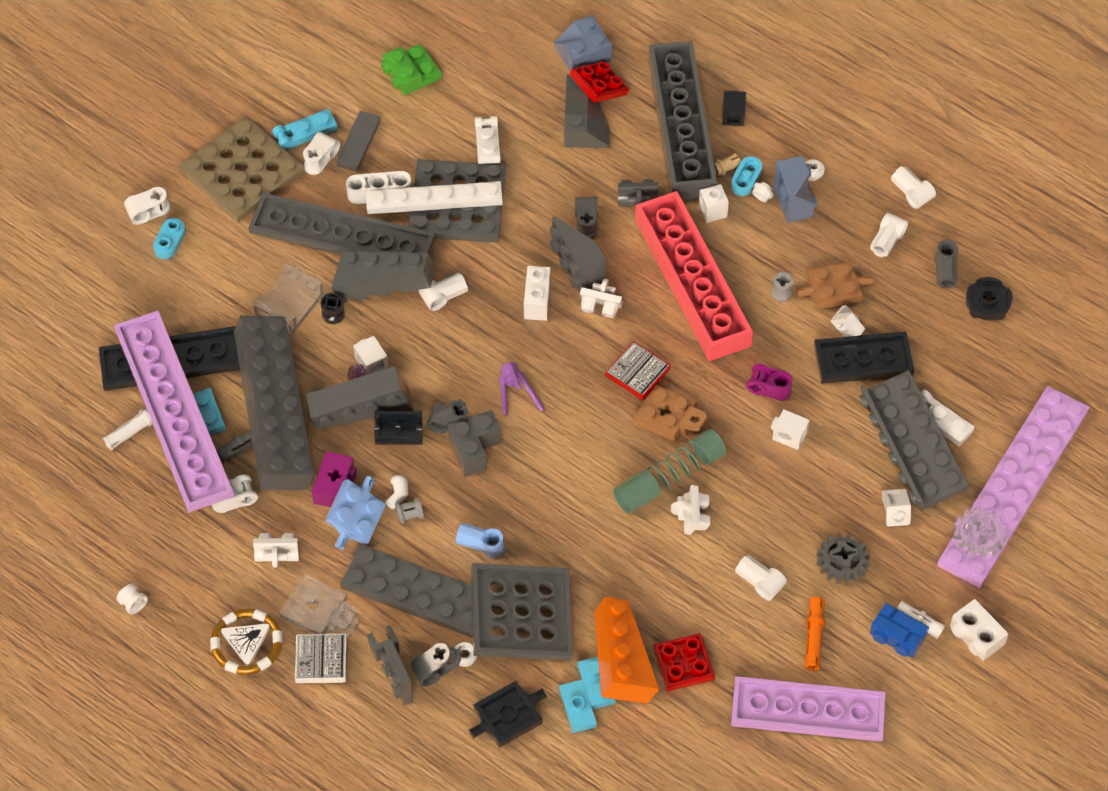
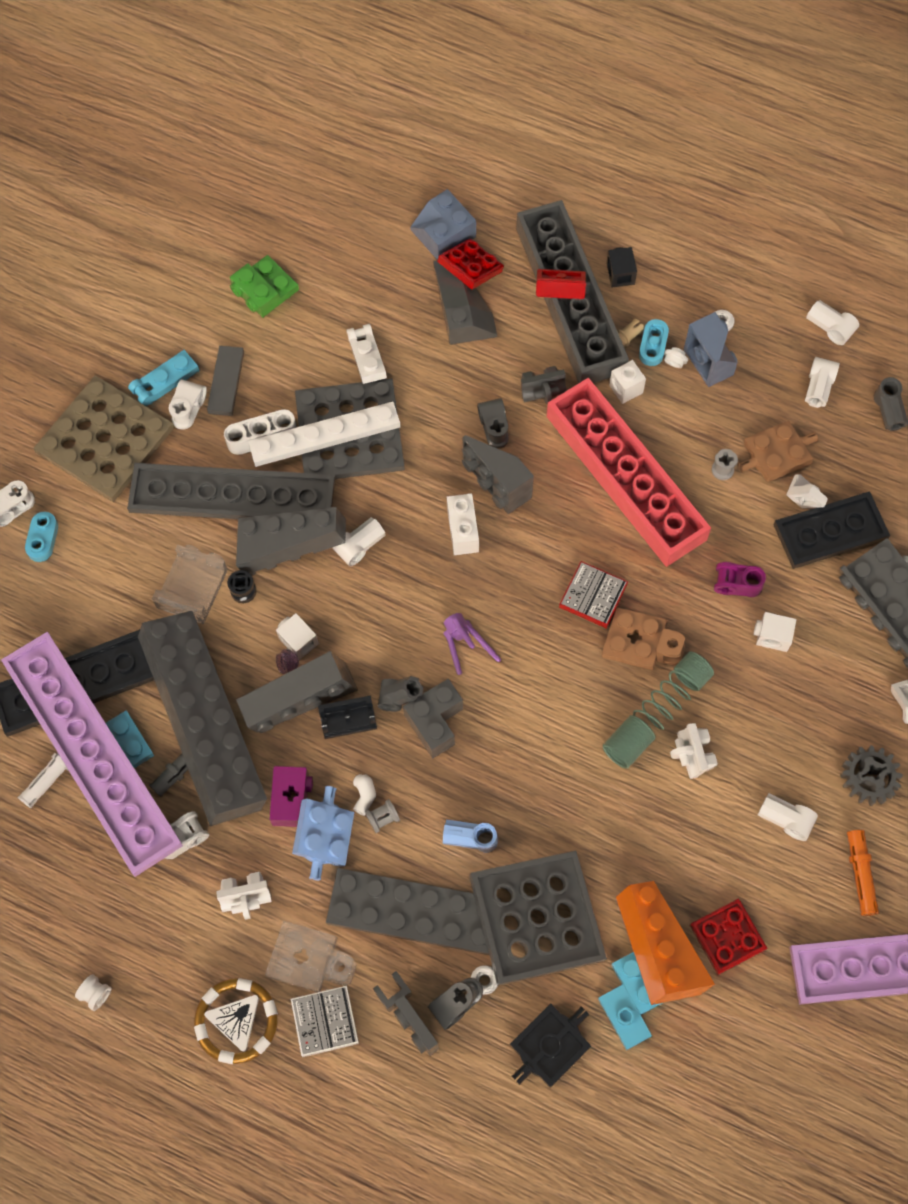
camera: 10 degrees left, 10 degrees up
(610, 302) = (545, 519): white hips -> none
(672, 110) = (561, 284): none -> red slope

